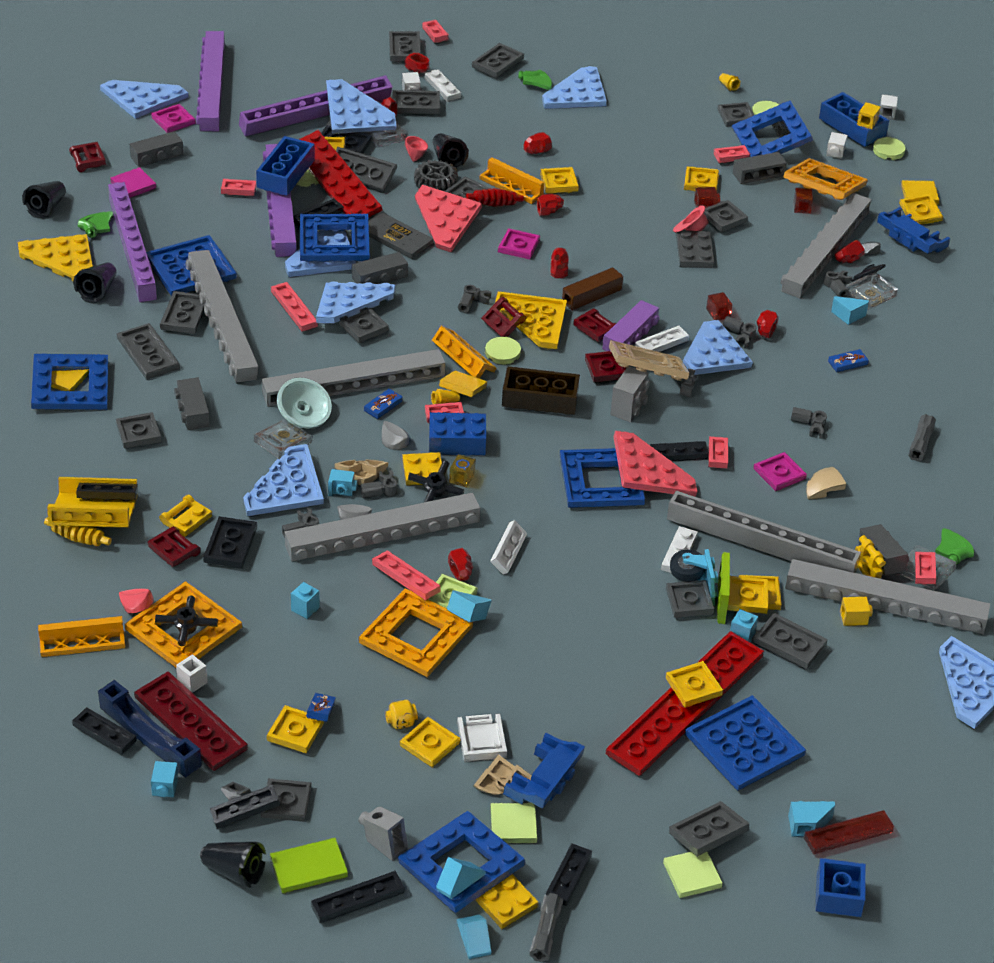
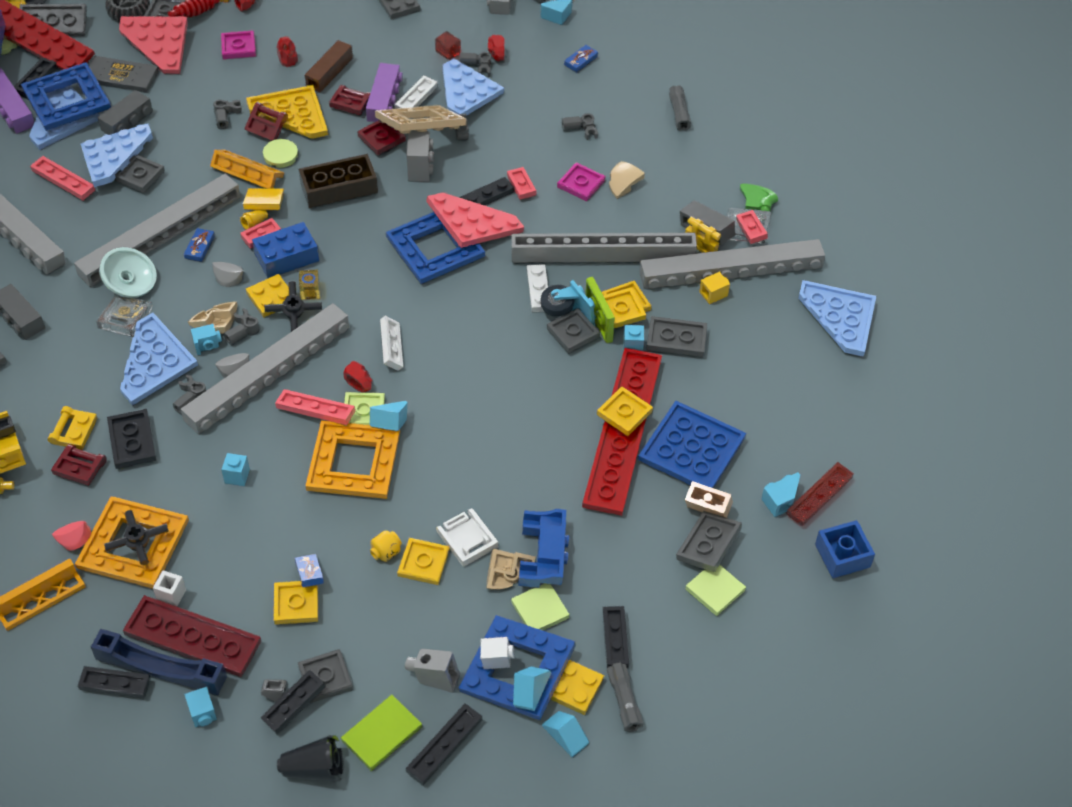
camera: 25 degrees left, 10 degrees up
(445, 837) = (496, 653): none -> white brick
(730, 792) = (708, 499): none -> light nougat brick

